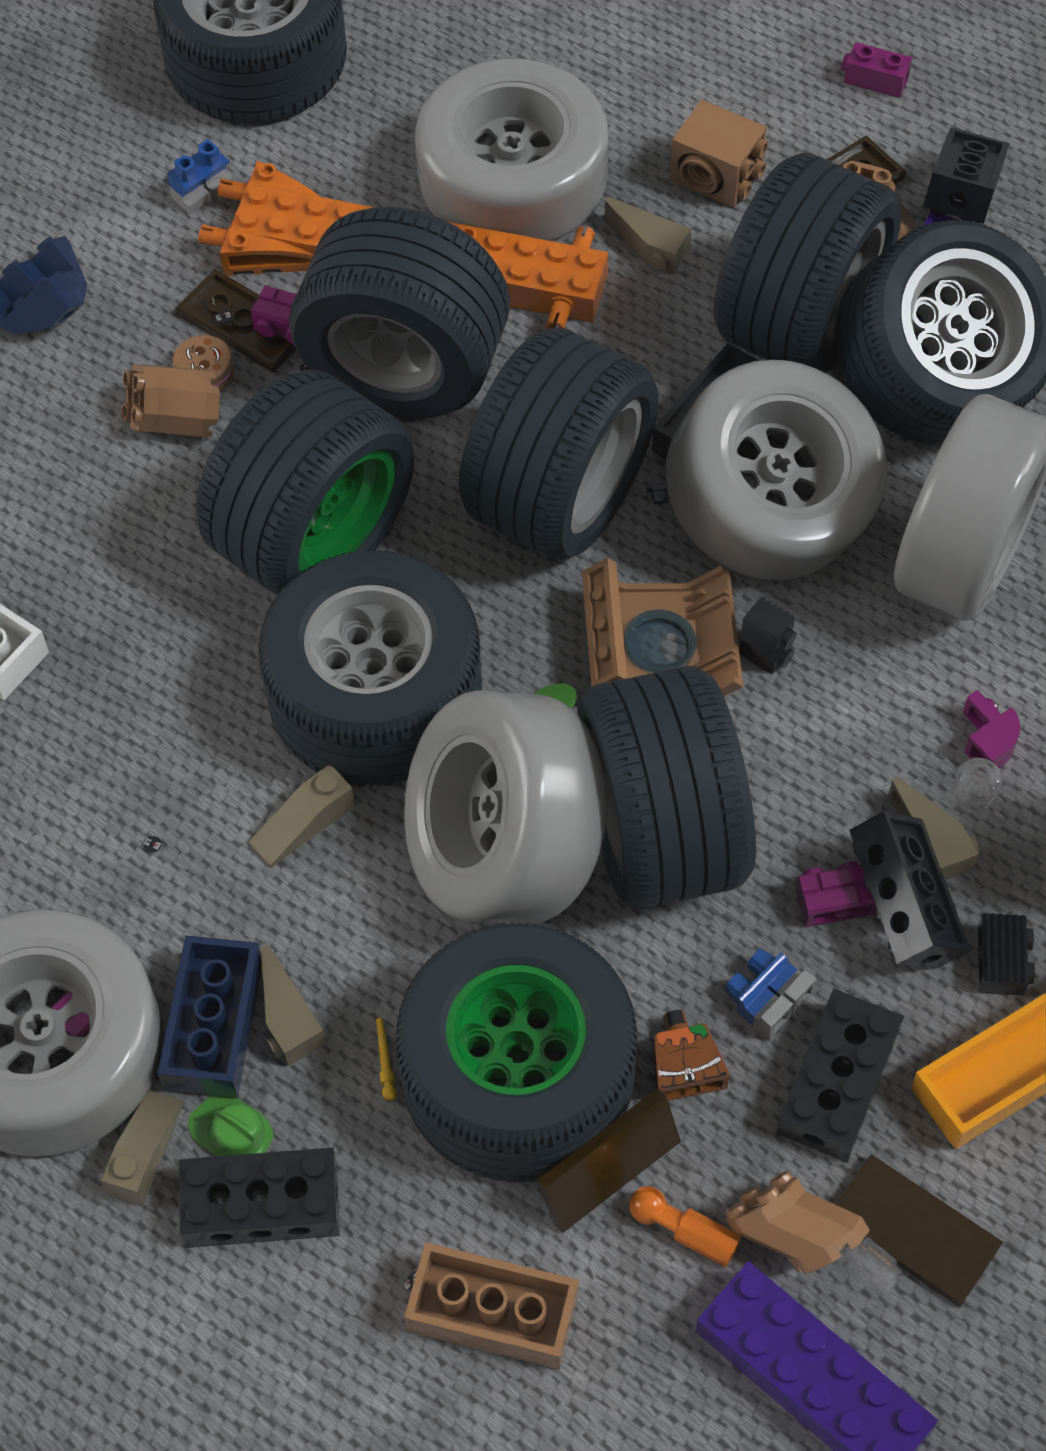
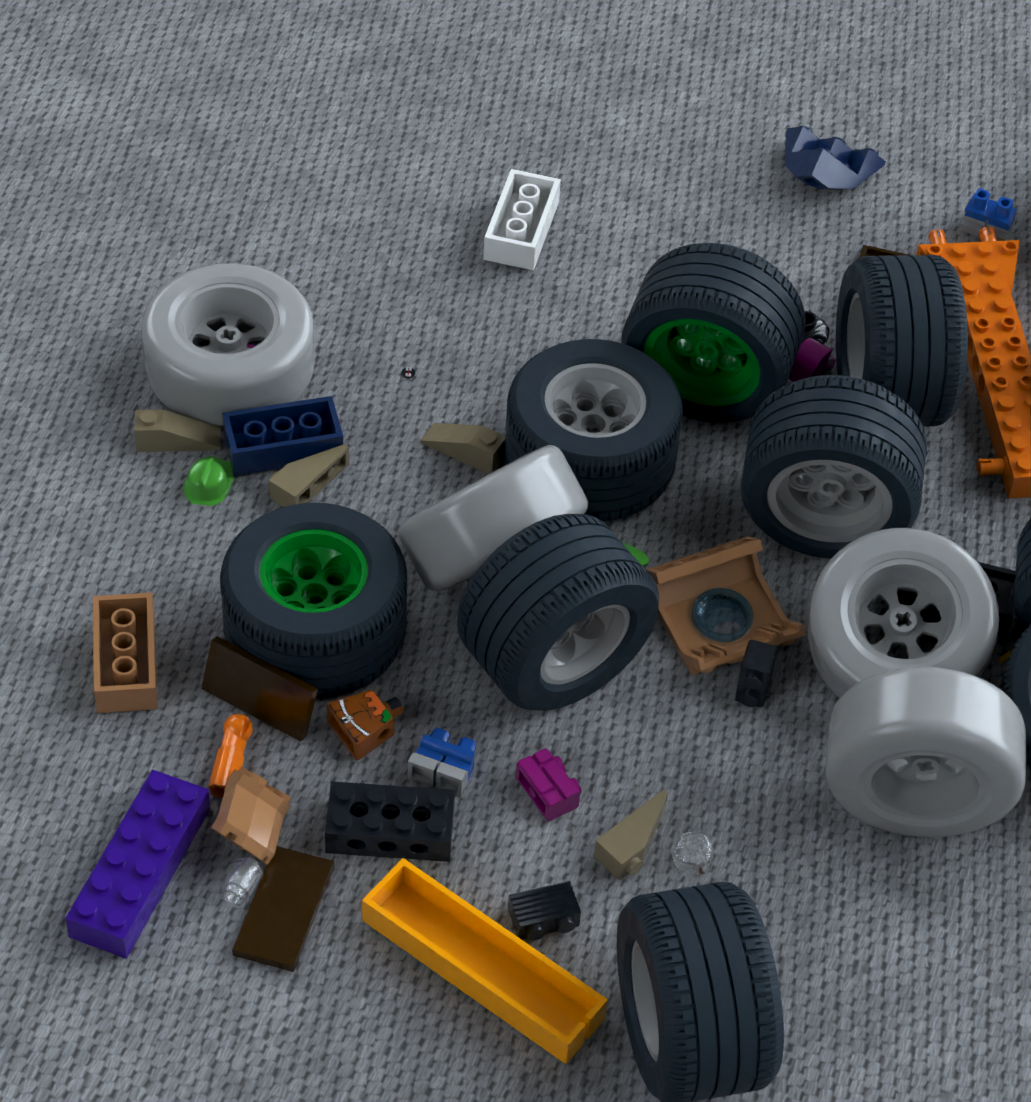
camera: 65 degrees right, 10 degrees down
(170, 400) = (778, 248): medium nougat brick -> none
(209, 354) = (820, 274): medium nougat head -> none
(242, 1179) = (165, 534): black brick -> none
(909, 890) = (562, 819): black brick -> none
(996, 732) = (745, 862): magenta brick -> none

